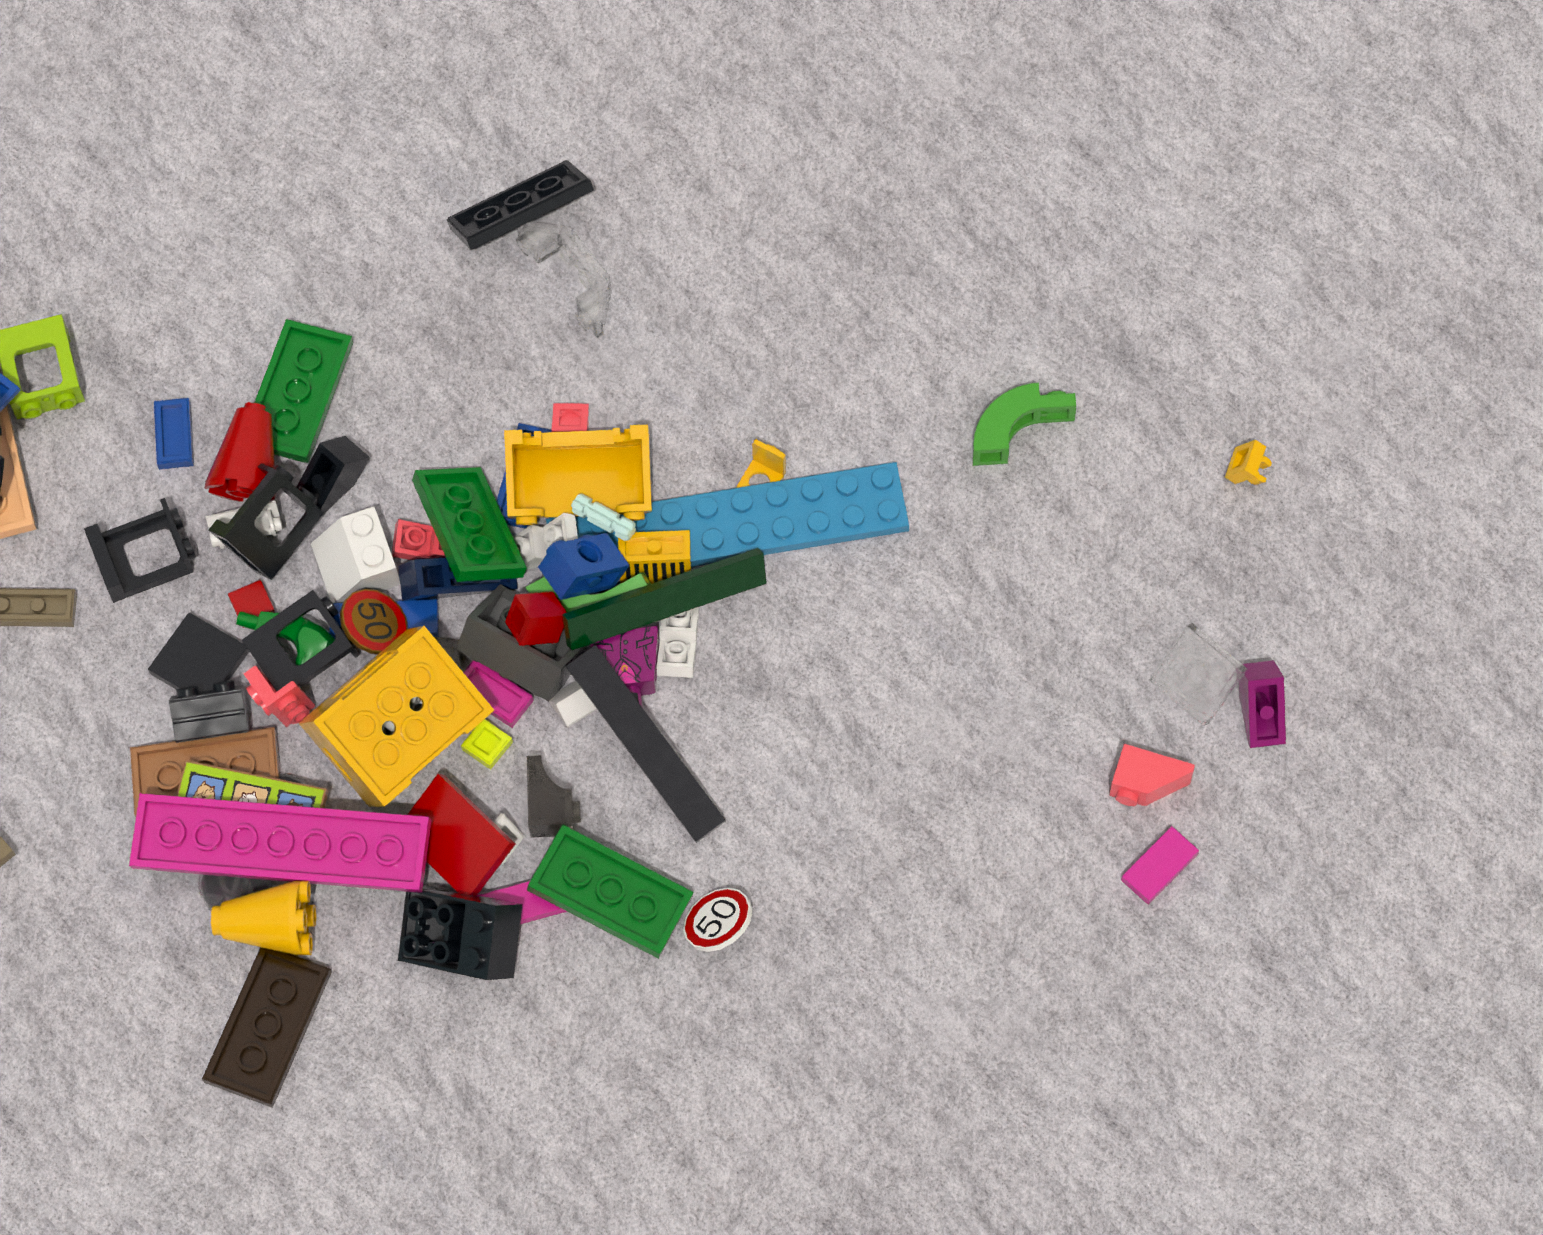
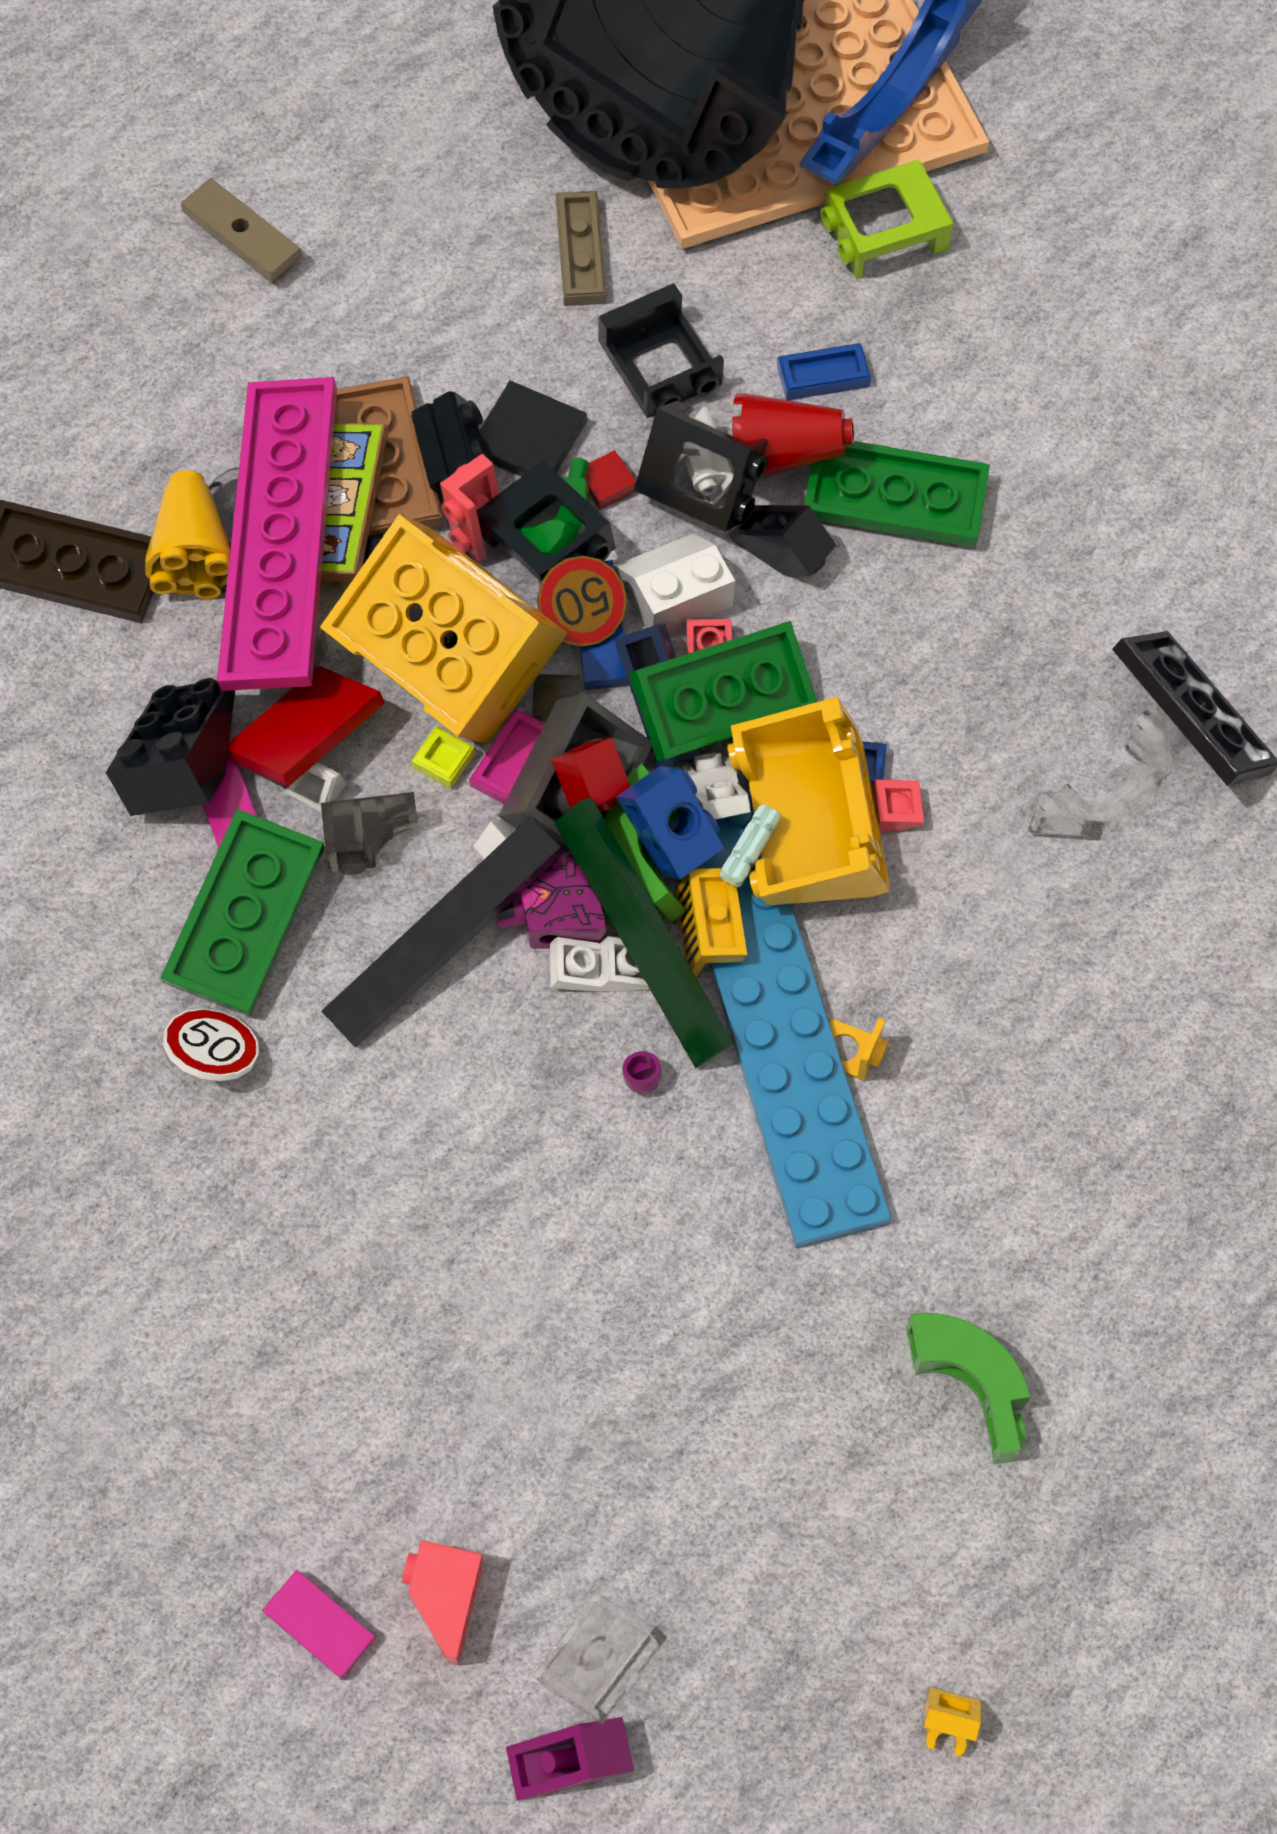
camera: 80 degrees right, 0 degrees up
(762, 619) = (638, 1069): none -> magenta hinge

